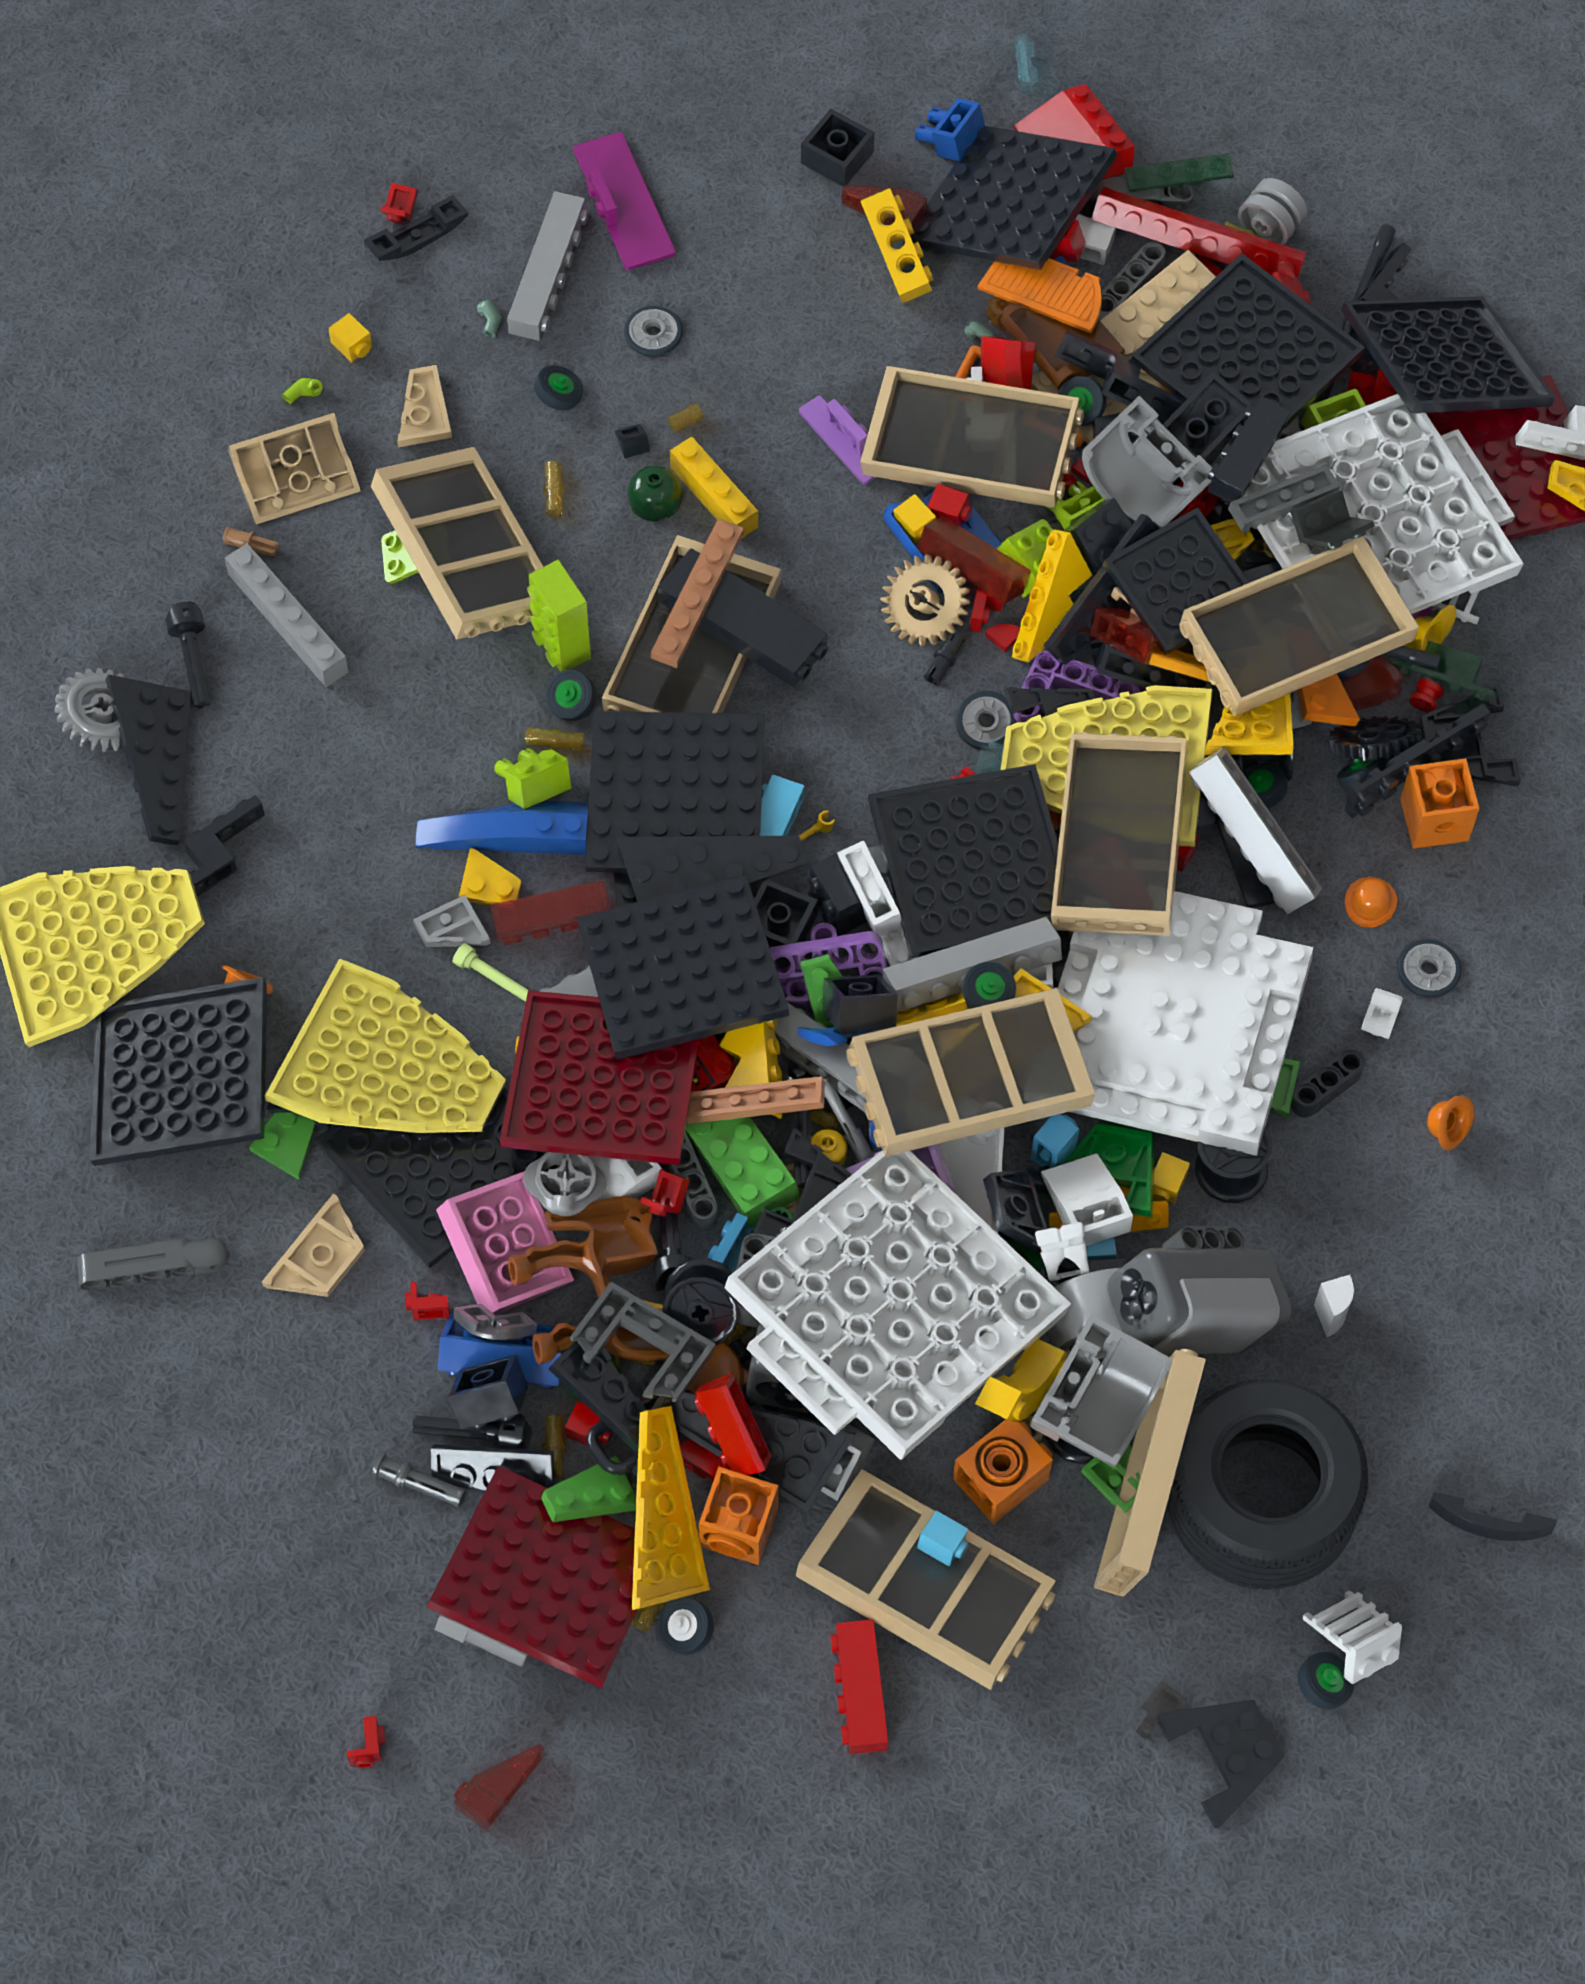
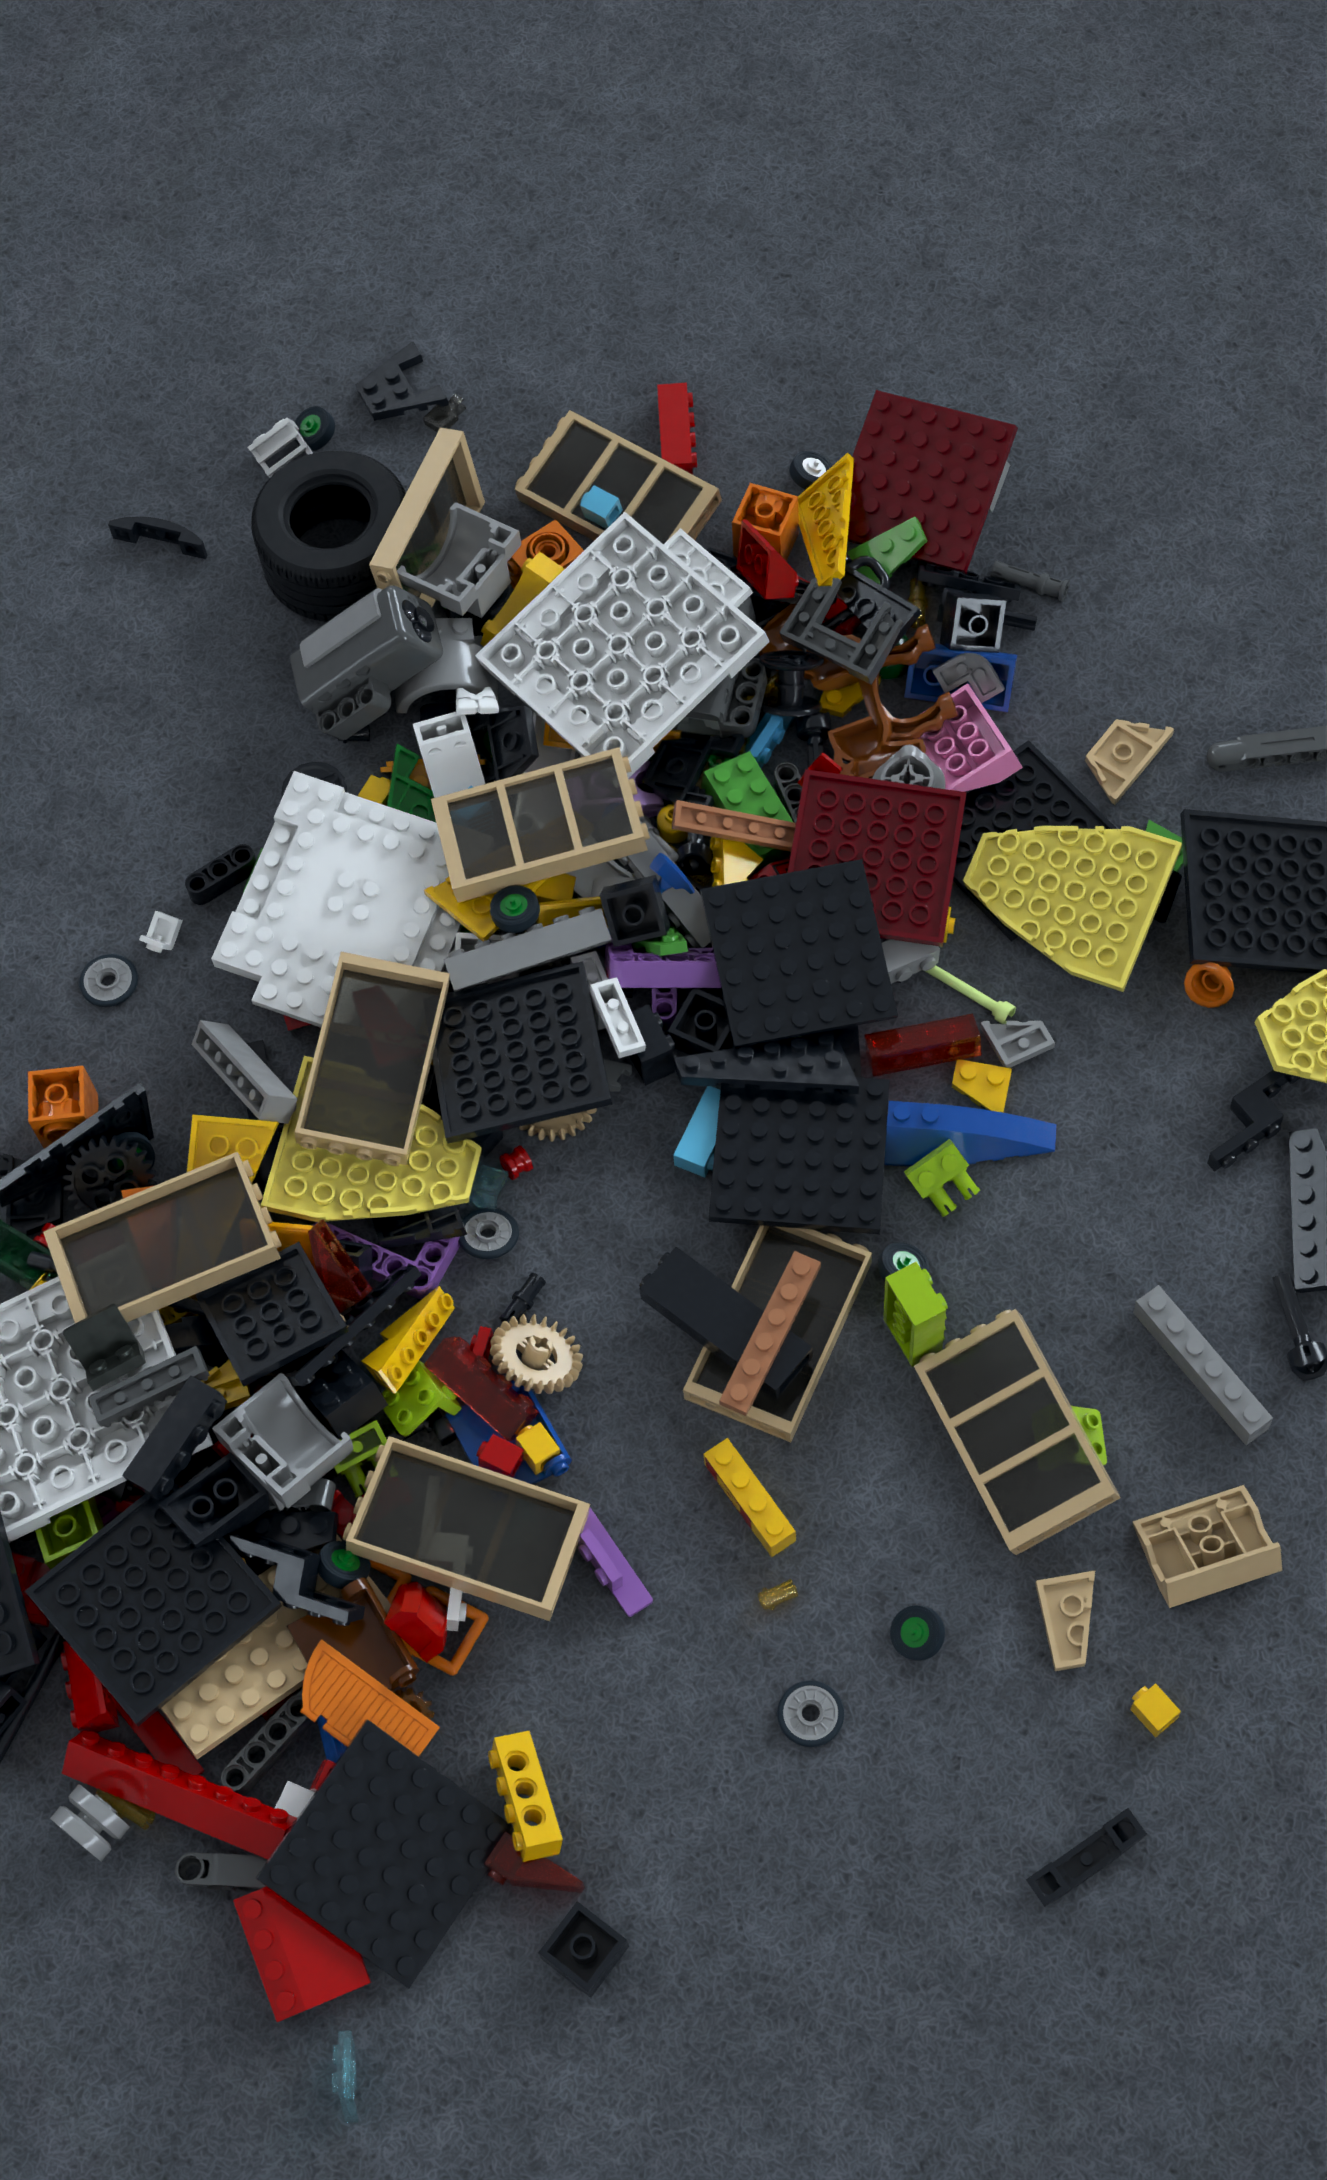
camera: 170 degrees left, 0 degrees up
(258, 544) = (1247, 1459): medium nougat axle -> none
(303, 387) = (1204, 1653): lime arm -> none
(374, 1738) = (1061, 393): red bracket -> none
(400, 203) = (1108, 1897): red bracket -> none
(427, 1307) = (1028, 707): red bracket -> none
(493, 316) = (994, 1741): sand green arm -> none
(494, 1788) = (961, 370): clear red slope -> none
(547, 266) = (930, 1802): light grey brick -> none
(553, 489) = (922, 1510): clear yellow pin -> none
(554, 738) = (920, 1225): clear yellow pin -> none
(623, 201) = (842, 1898): magenta bracket -> none
(632, 440) = (837, 1574): black slope -> none
(654, 493) = (816, 1512): dark green cylinder -> none
(819, 826) = (662, 1131): yellow hand -> none
(954, 129) = (436, 1971): blue brick -> none
(977, 329) = (440, 1693): sand green arm -> none
(1003, 635) = (459, 1326): red tile -> none
(1179, 172) = (187, 1887): clear green bracket -> none
(1333, 1303) = (251, 683): white brick -> none
(1370, 902) = (147, 1046): orange hat -> none
(1451, 1121) = (124, 838): orange hat -> none

